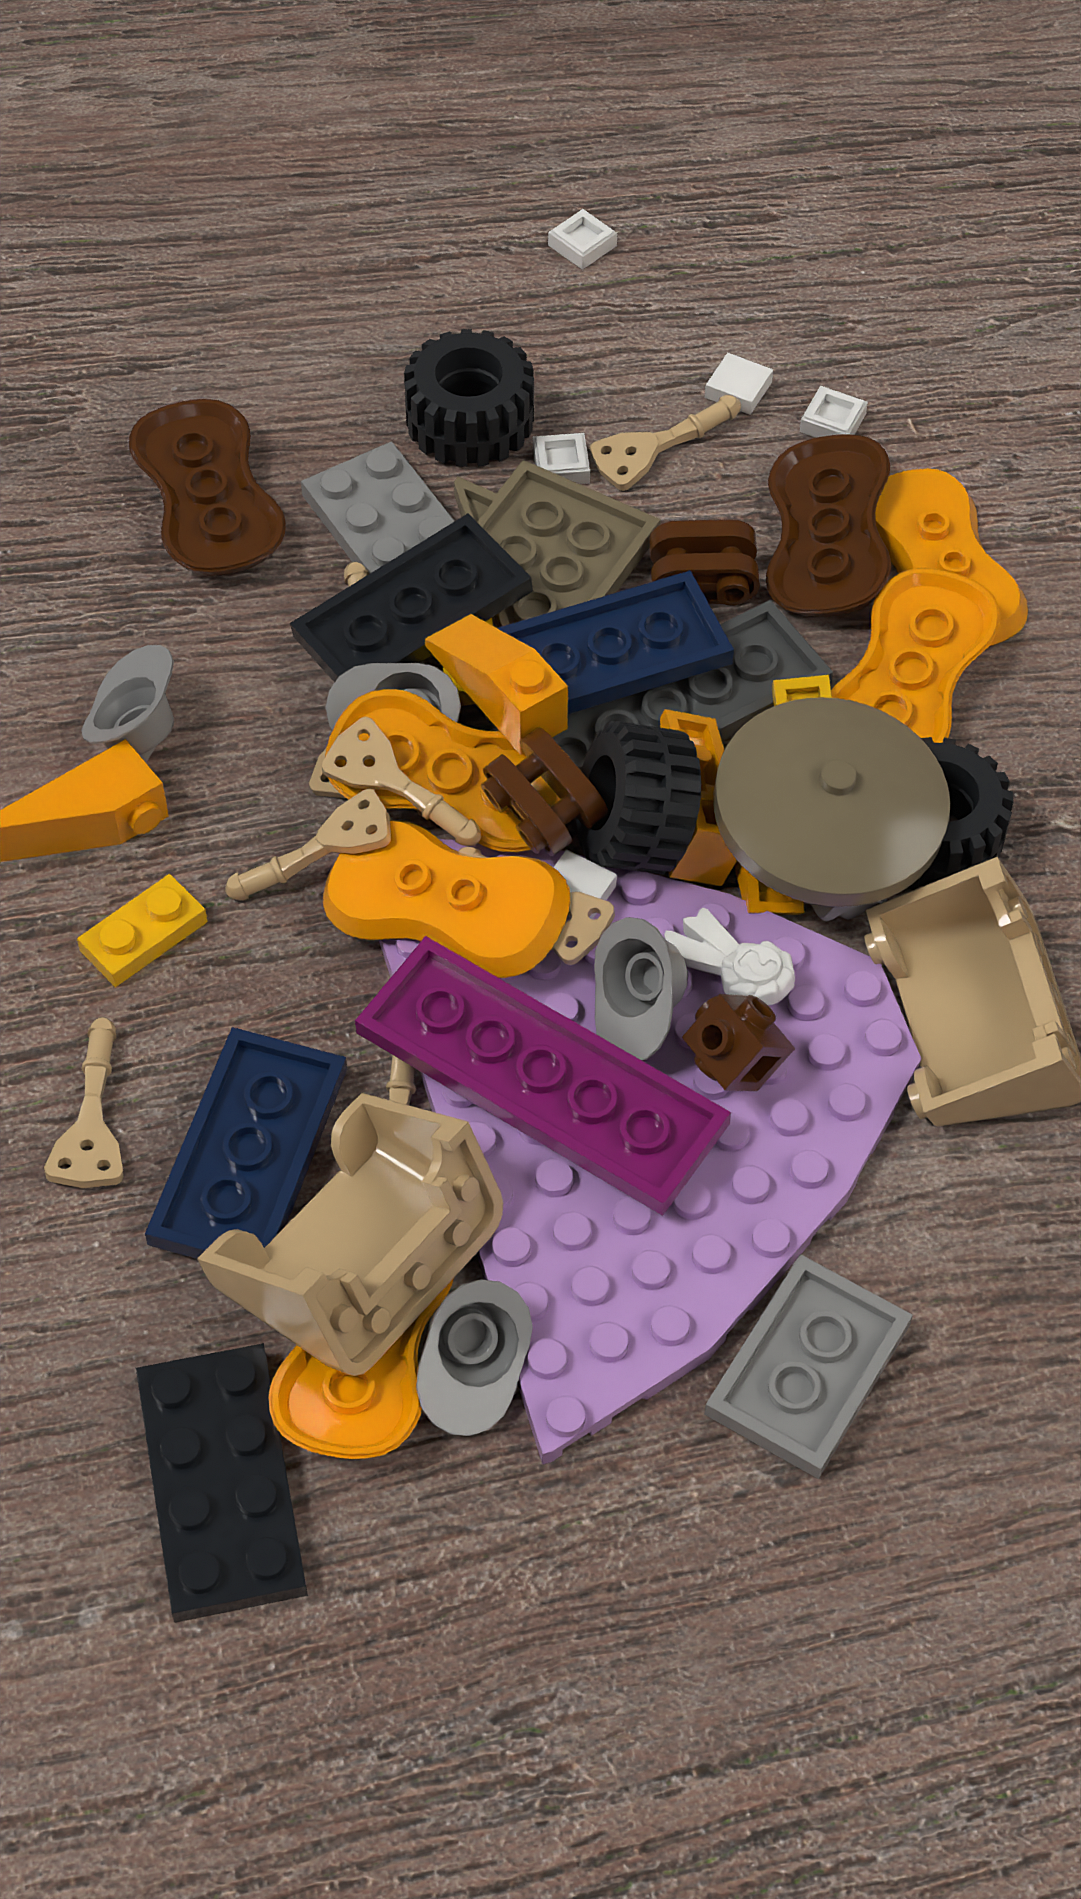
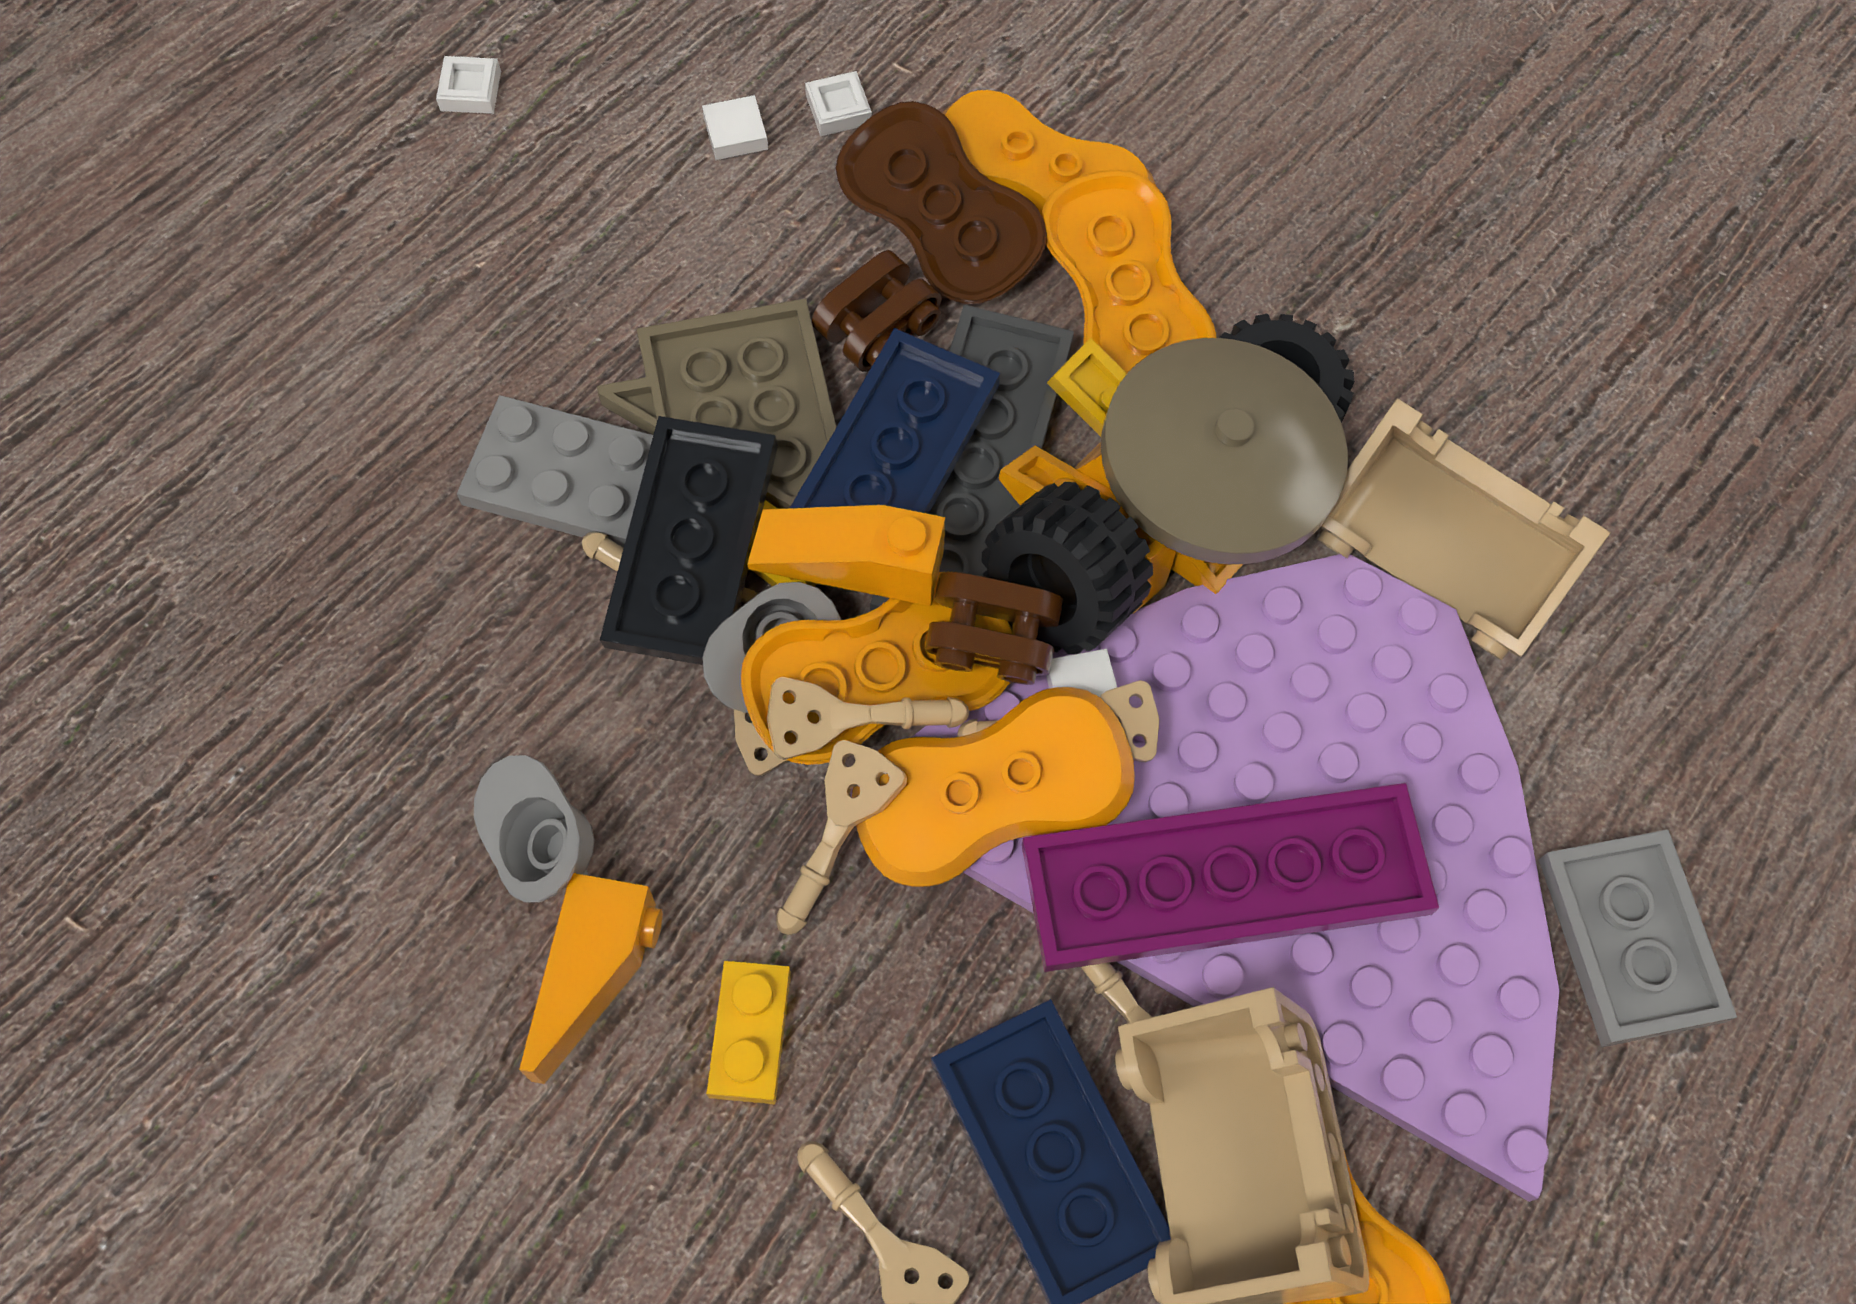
camera: 45 degrees left, 10 degrees up
(213, 507) = (410, 583): reddish brown plate -> none
(469, 397) = (526, 267): black tyre -> none
(473, 1357) = (1415, 1164): light grey piece -> none
(563, 455) = (657, 300): white tile -> none
(636, 986) = (1235, 742): light grey piece -> none
(648, 444) = (719, 235): tan piece -> none
(737, 1041) = (1353, 718): reddish brown brick -> none
(743, 967) = (1291, 645): white piece -> none

